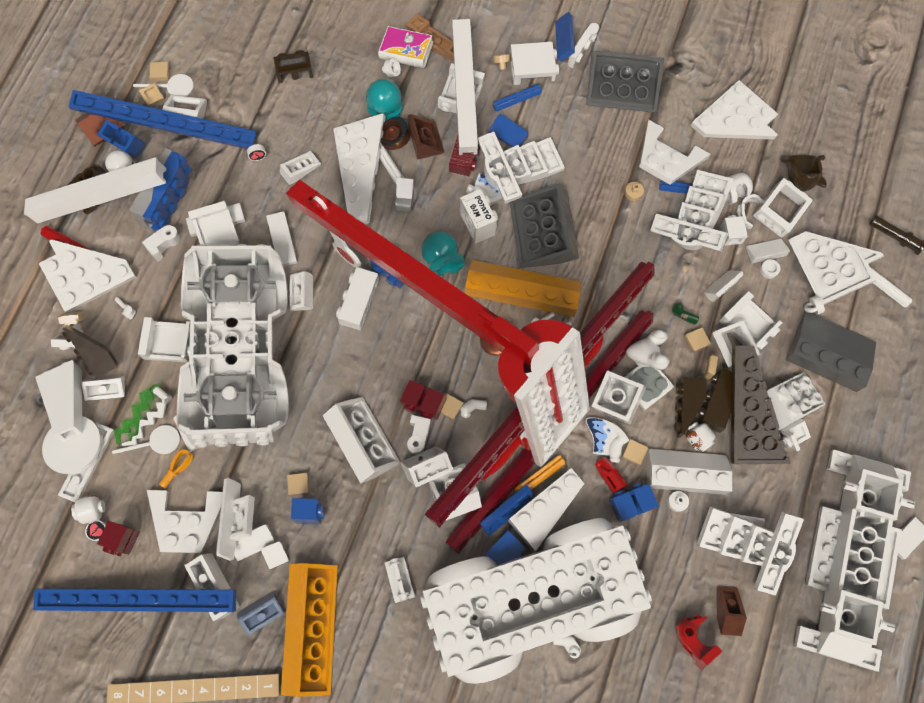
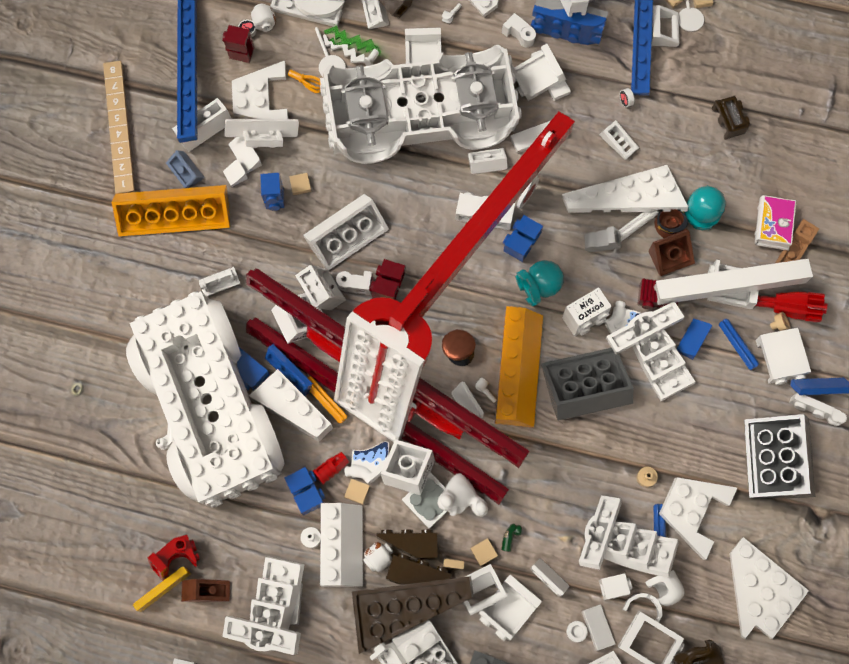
camera: 90 degrees right, 0 degrees up
(391, 67) = (748, 212): white tile -> none
(489, 36) = (796, 305): none -> red piece
(727, 657) = (161, 589): none -> yellow tile

